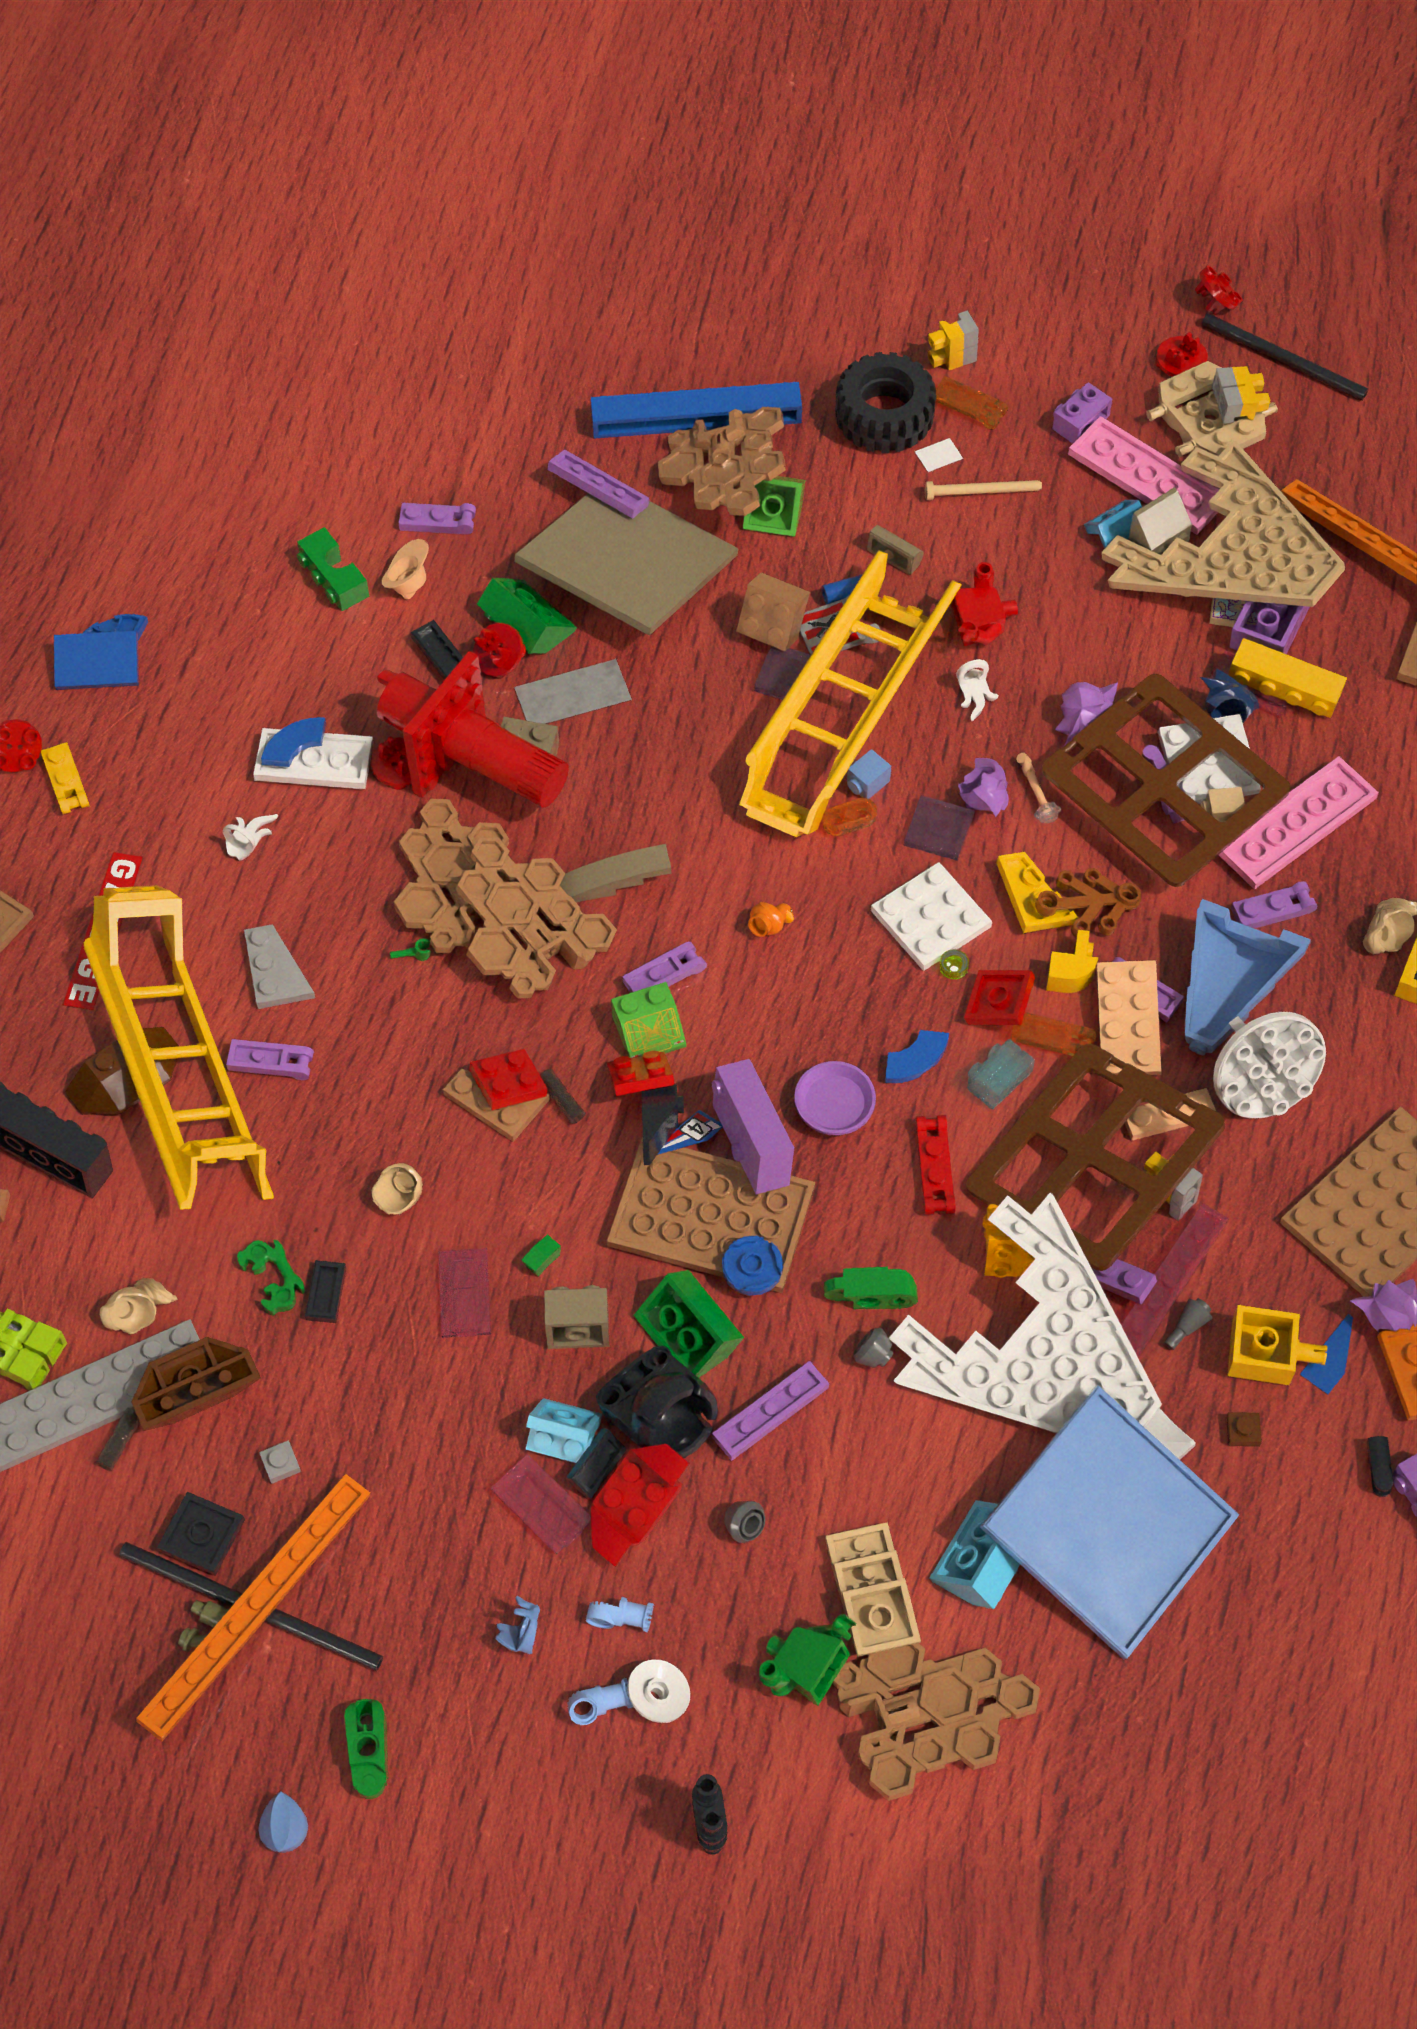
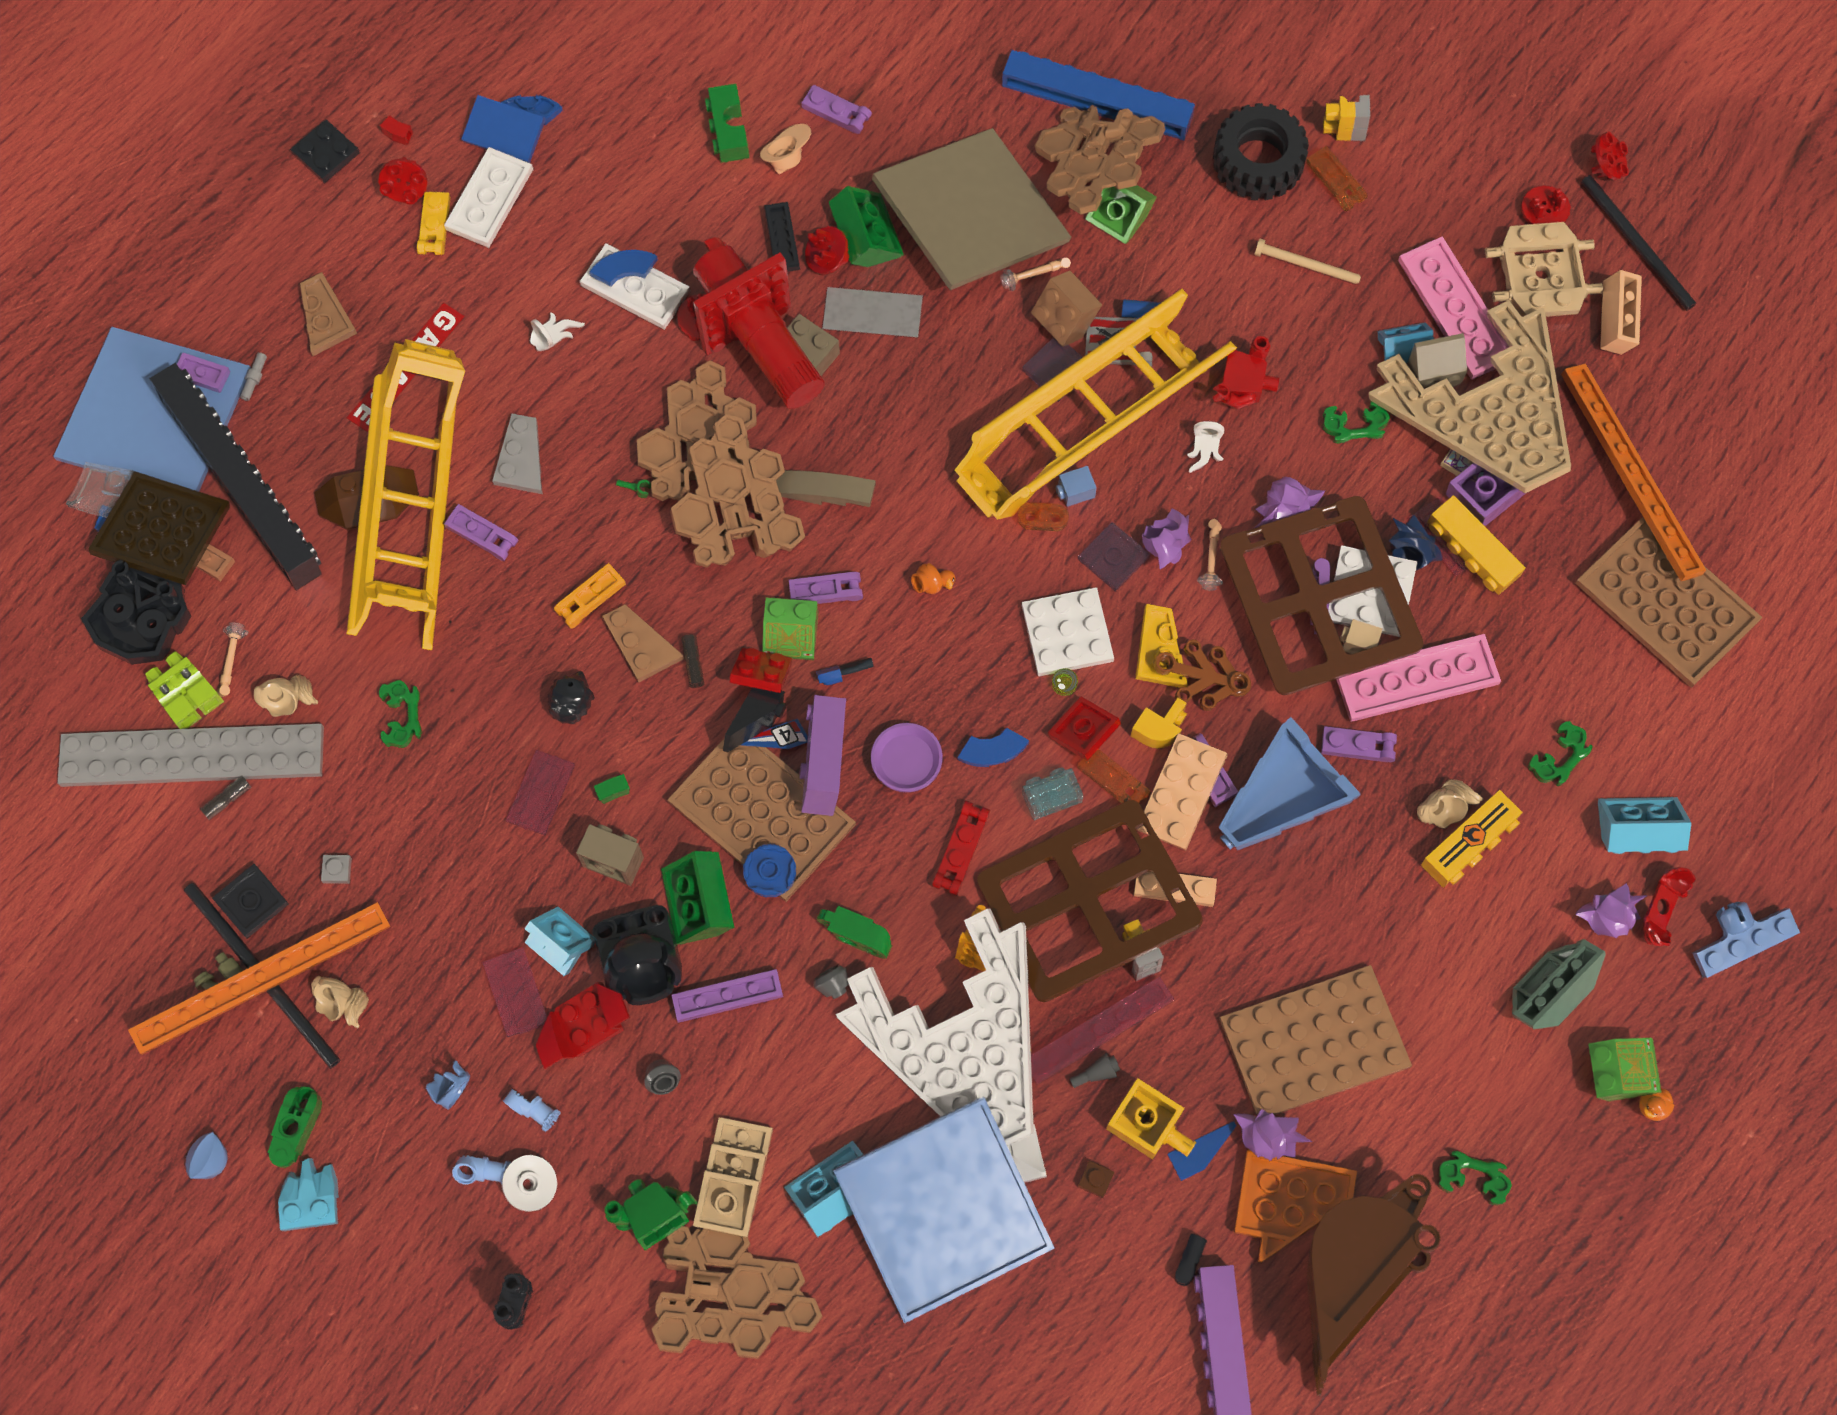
camera: 25 degrees right, 10 degrees up
(48, 1264) = (235, 632): none -> light nougat piece
(112, 731) = (488, 197): none -> white plate
(192, 1381) = (293, 776): reddish brown wedge -> none
(325, 1291) = (435, 745): black tile -> none
(348, 1593) = (336, 999): none -> tan hair
(397, 1188) = (526, 685): tan hair -> none
(419, 1074) = (590, 595): none -> light orange plate
(422, 1817) = (309, 1198): none -> medium azure plate
(451, 1183) = (570, 698): none -> black animal
(508, 1079) = (655, 629): red plate -> none
(596, 1463) = (571, 978): black tile -> none
(598, 483) = (979, 132): medium lavender plate -> none
(698, 610) = (1010, 279): none -> light nougat piece
(717, 1049) = (834, 674): none -> piece
(900, 552) = (1202, 290): dark tan brick -> none
(938, 455) = (1286, 216): white sticker -> none
(1081, 412) = (1428, 225): medium lavender brick -> none
(1089, 625) = (1335, 424): none -> green helmet
(1126, 1281) = (1064, 1016): medium lavender plate -> none
(1236, 393) = (1568, 265): hips -> none
(1269, 1064) = (1270, 885): white bracket -> none
(1305, 420) = (1621, 312): none -> light nougat brick

